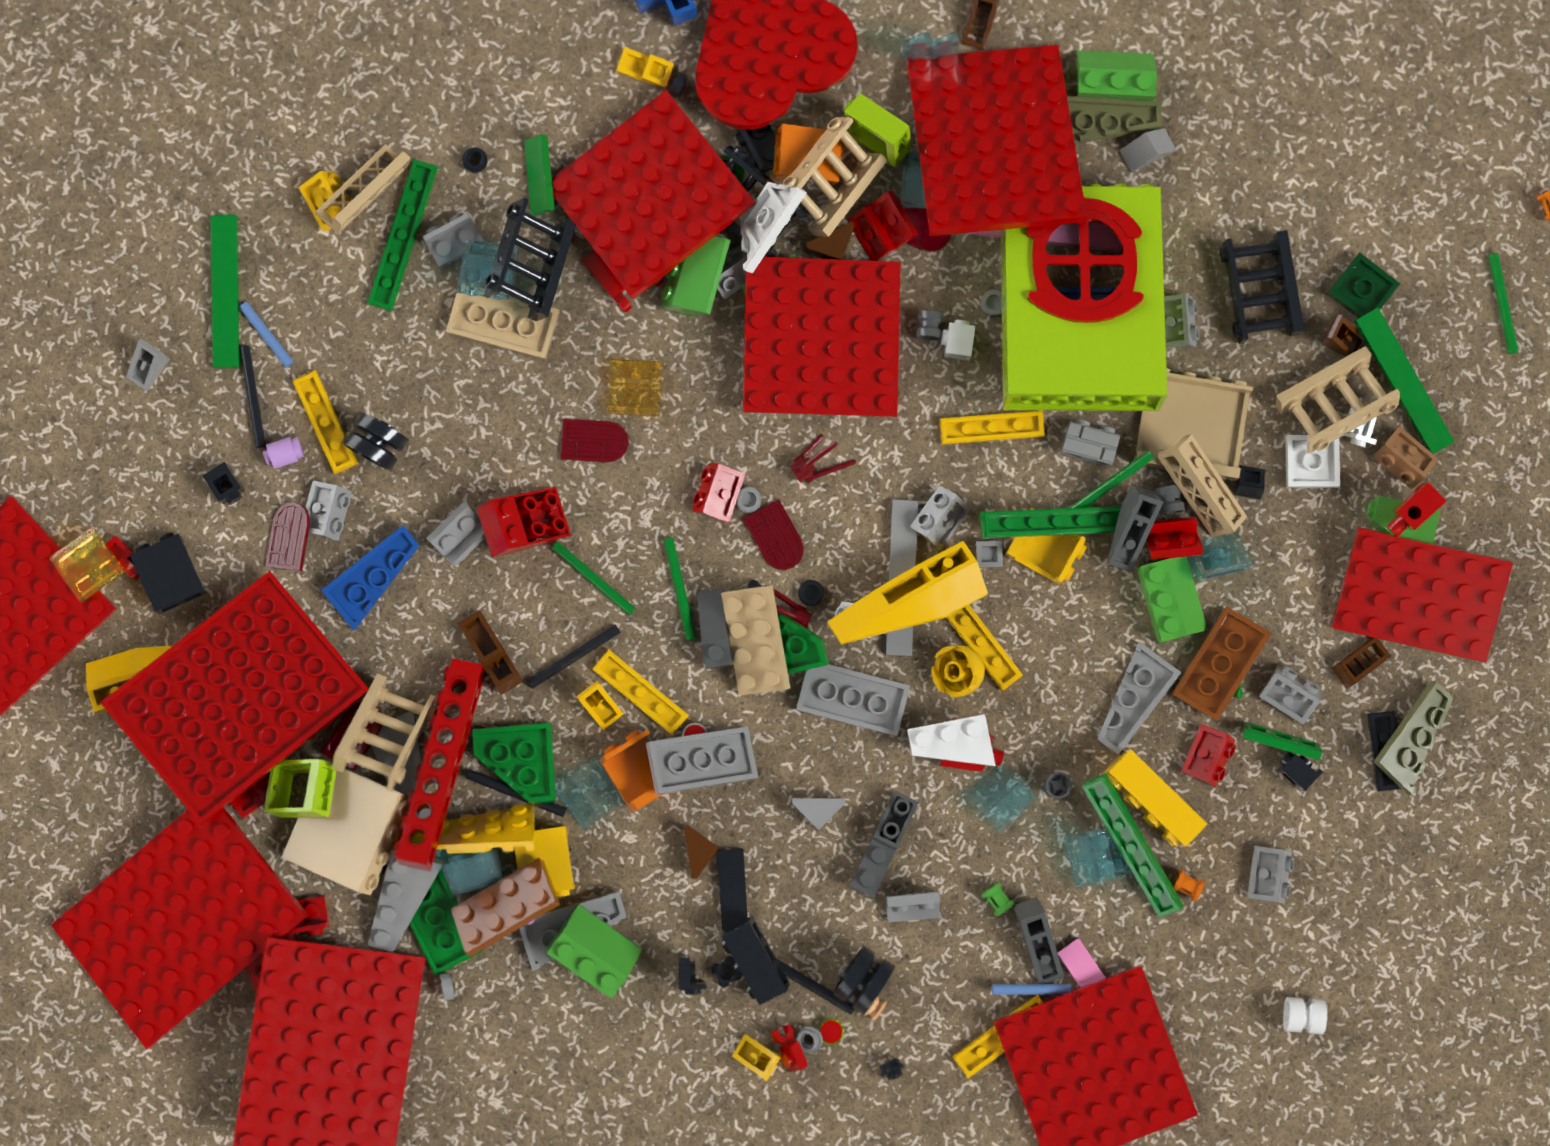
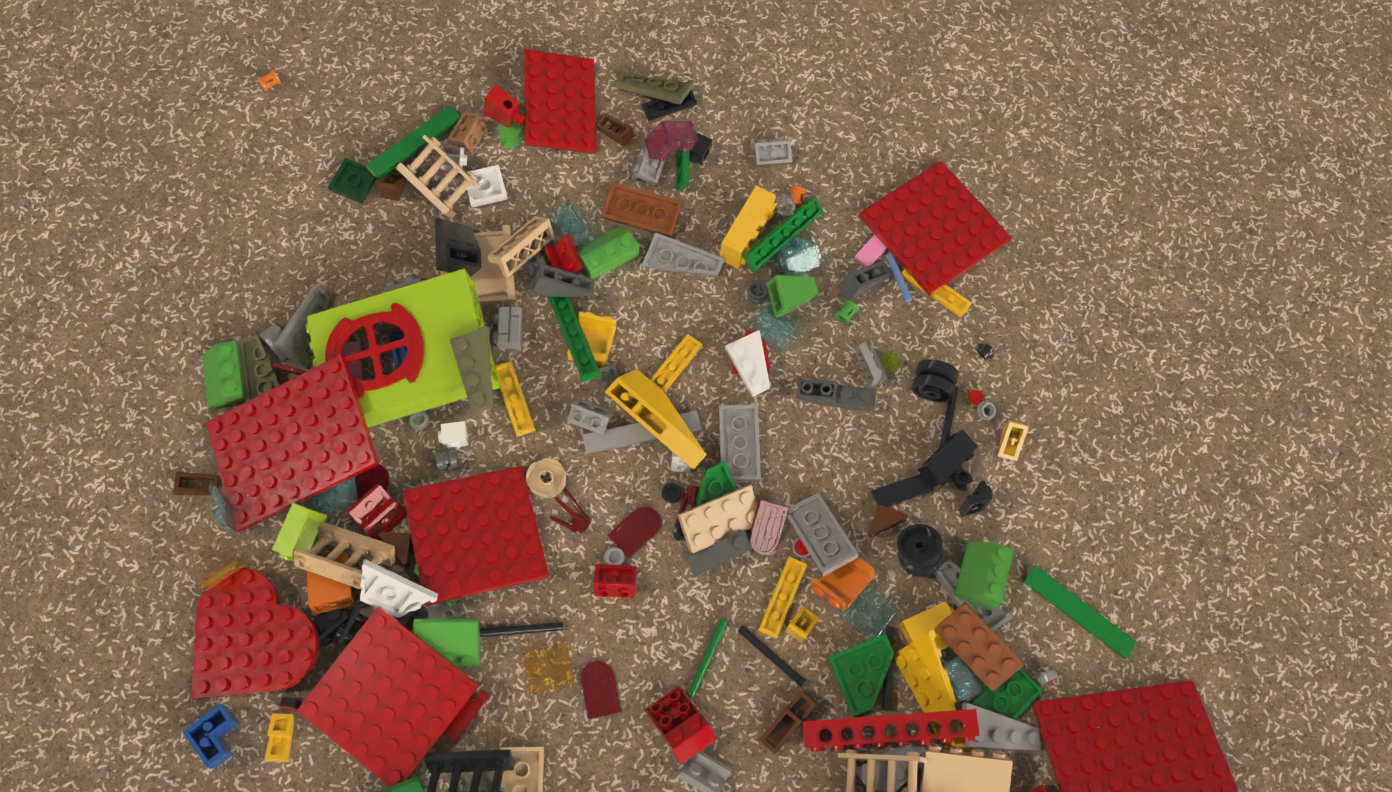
camera: 110 degrees left, 15 degrees down
(515, 1060) = (1080, 612): none -> green tile
(660, 875) = (920, 550): none -> black wheel
(679, 589) = (696, 590): green bar -> none
(691, 366) = (523, 629): none -> black bar
(731, 698) = (767, 527): none -> window
(791, 1051) = (998, 420): red plate -> none
(818, 810) = (826, 443): light grey slope -> none
(854, 31) = (220, 573): none -> clear yellow slope
(873, 456) = (542, 468): none -> tan plate
(911, 934) = (890, 362): none -> clear neon green tile
(958, 670) = (699, 373): yellow cylinder -> none
(1030, 376) = (473, 361): none -> olive wing
(1040, 827) = (790, 293): none -> bright green slope
(1097, 154) = (287, 369): none -> dark red window
(1114, 480) = (534, 305): green bar -> none
(1140, 167) = (295, 338): none -> light grey wing
(1181, 863) = (782, 201): none -> clear wheel
(1209, 755) = (706, 205): red bracket -> none
(1220, 399) = (456, 247): none -> black slope
(1251, 482) = (510, 218): black slope -> none
(1282, 271) = (361, 226): black fence -> none
(1305, 1015) = (855, 111): white wheel -> none
(1314, 728) = (670, 137): none -> clear pink brick
(1503, 304) = (345, 97): green bar -> none

